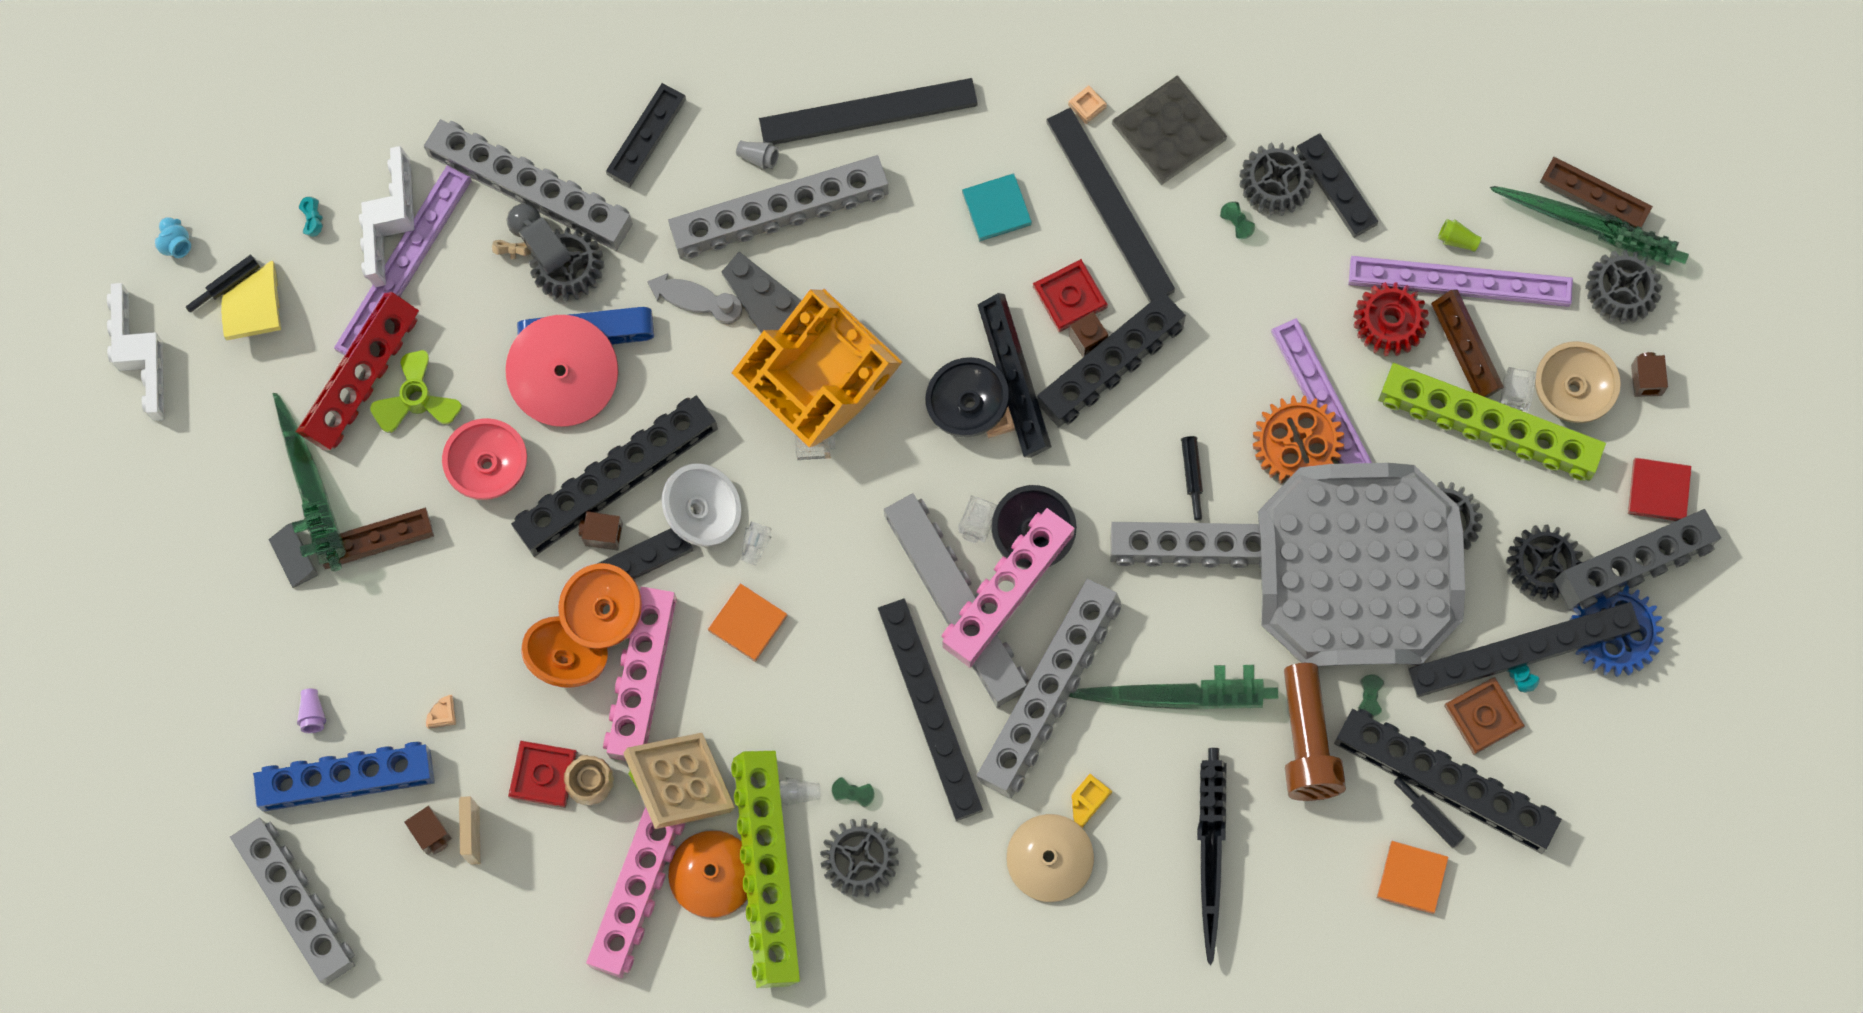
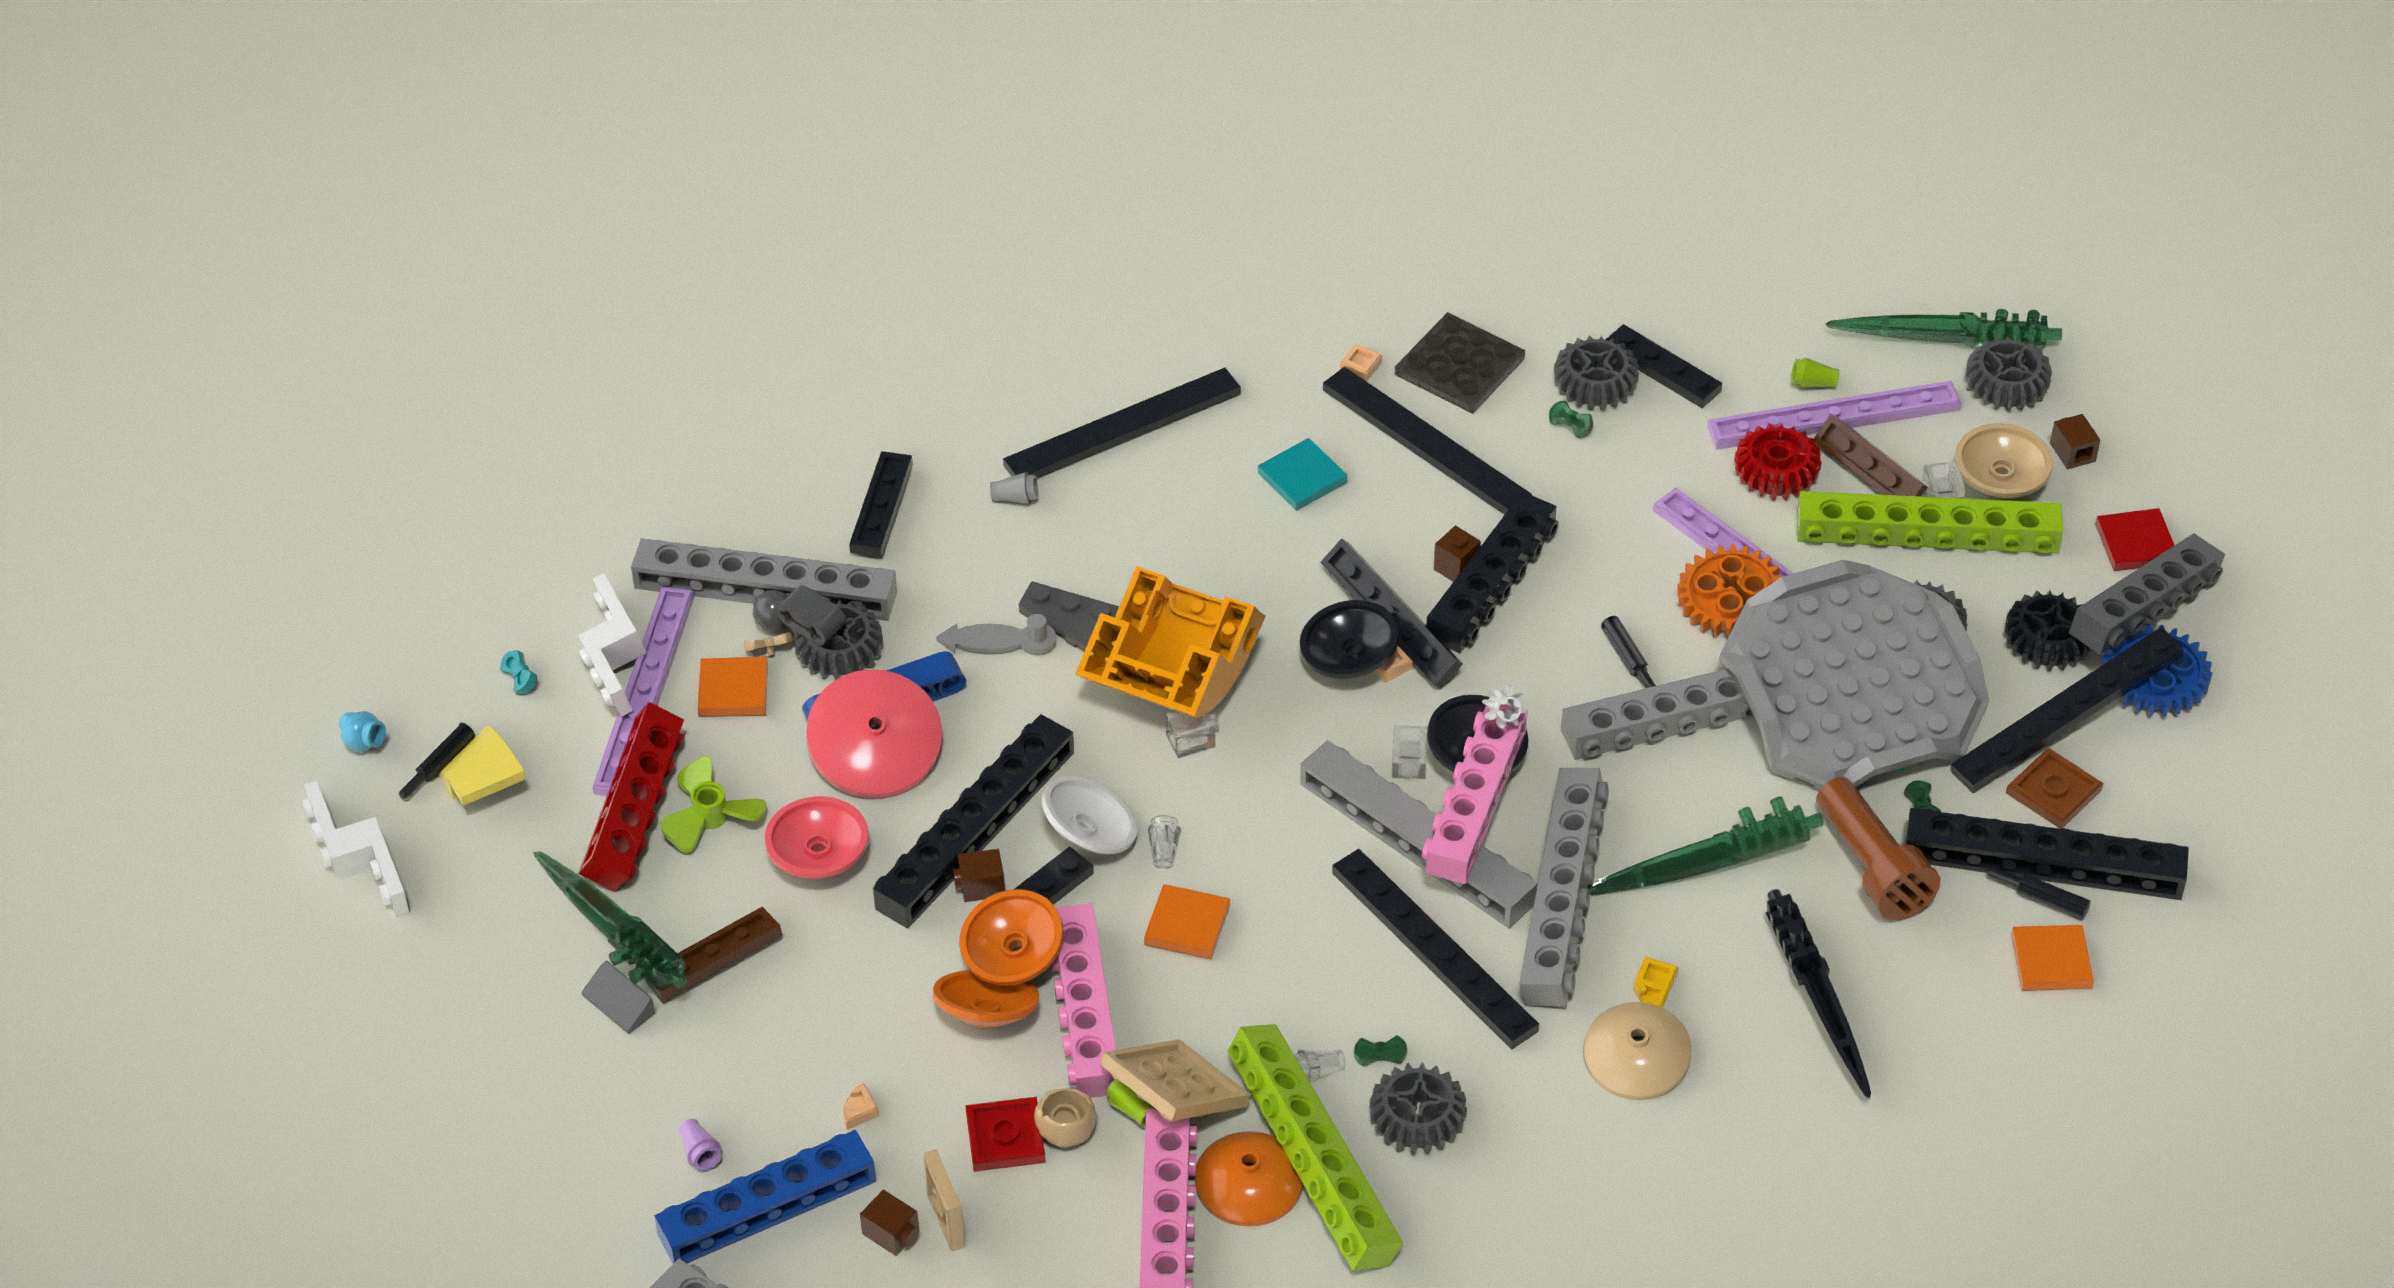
camera: 20 degrees left, 25 degrees down
(472, 281) = (732, 686): none -> orange tile
(788, 195) = (1058, 529): light grey brick -> none
(1052, 526) = (1502, 697): none -> white gear
(1069, 295) = (1415, 530): red tile -> none
(1523, 679) = (2079, 738): teal piece -> none
(1595, 193) = (1913, 300): reddish brown plate -> none

